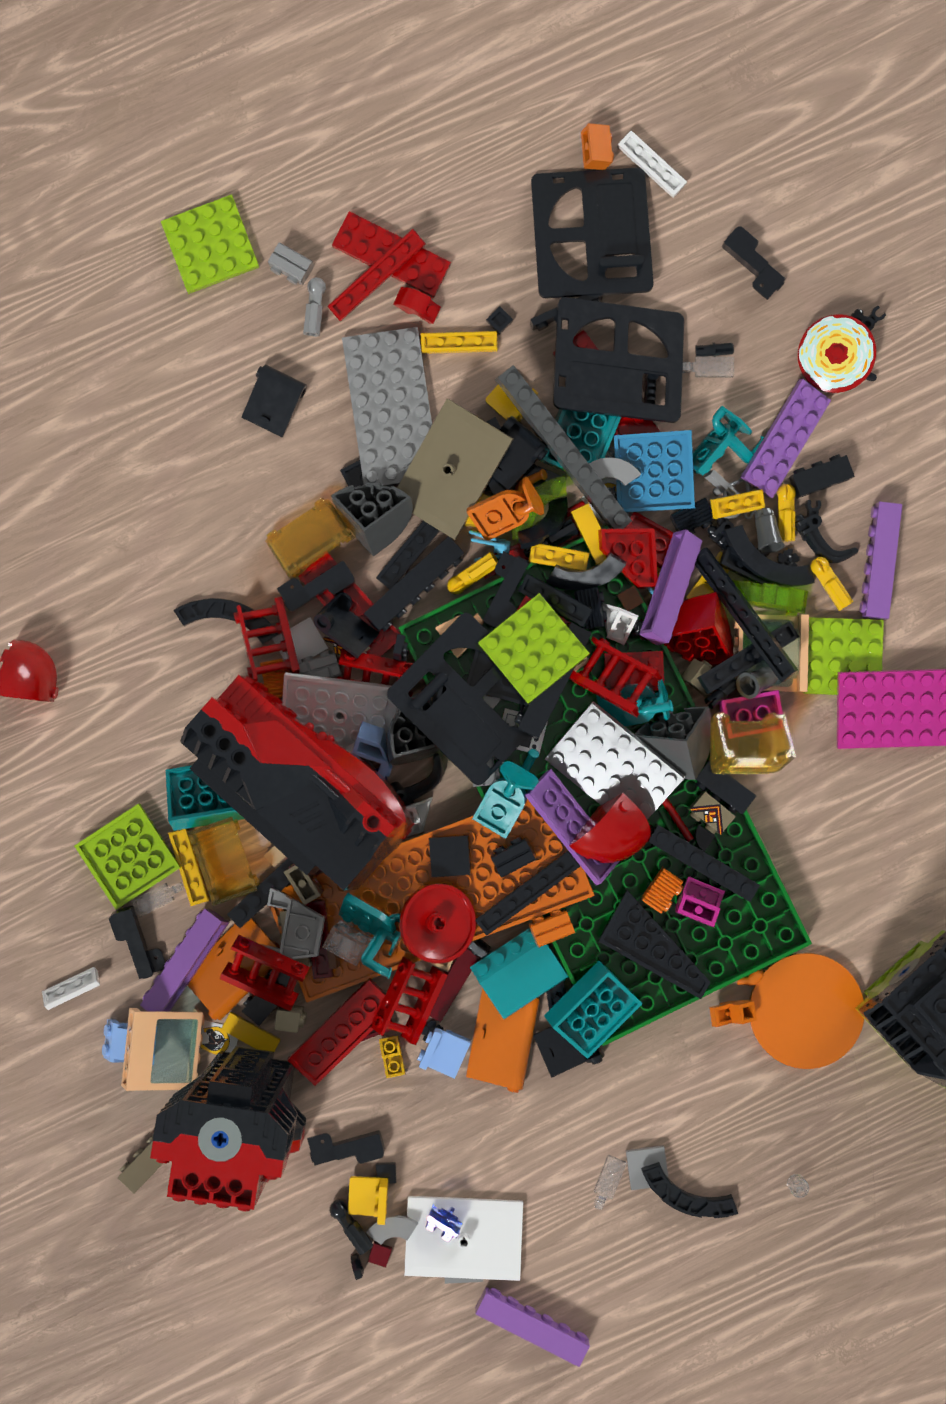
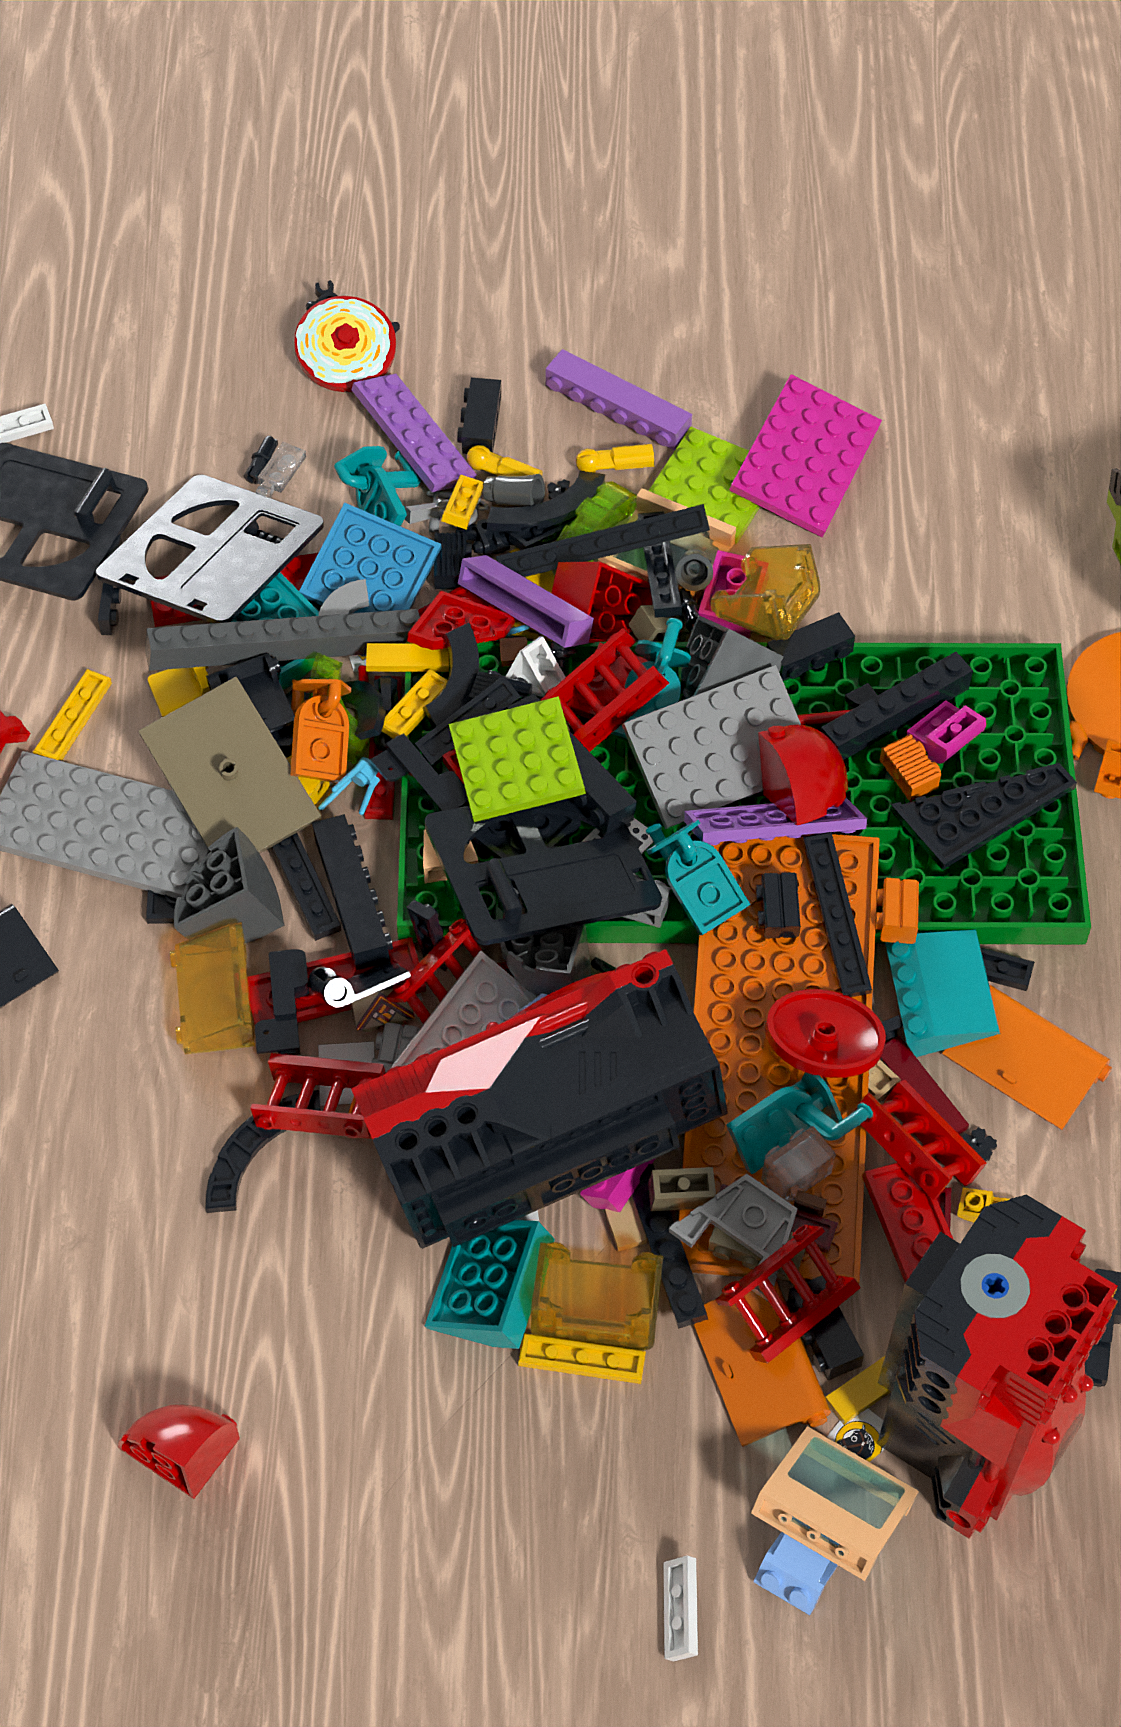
camera: 65 degrees left, 30 degrees down
(127, 856) = (523, 1434): lime plate -> none
(127, 927) = (626, 1479): black piece -> none
(140, 1169) = (1001, 1620): dark tan brick -> none
(155, 898) = (605, 1425): clear plate -> none
(185, 961) = (716, 1415): medium lavender brick -> none
(290, 1020) = (871, 1307): dark tan brick -> none
(444, 1052) = (1015, 1130): light blue piece -> none
(450, 856) = (739, 989): black tile -> none
(472, 574) = (377, 819): yellow piece -> none
(499, 320) = (75, 661): black tile -> none
(565, 1054) = (1072, 979): black door -> none
(592, 1009) = (1033, 911): teal slope -> none
(711, 813) = (835, 673): brick -> none
(742, 247) = (162, 384): black piece -> none
(809, 532) = (539, 455): black piece -> none

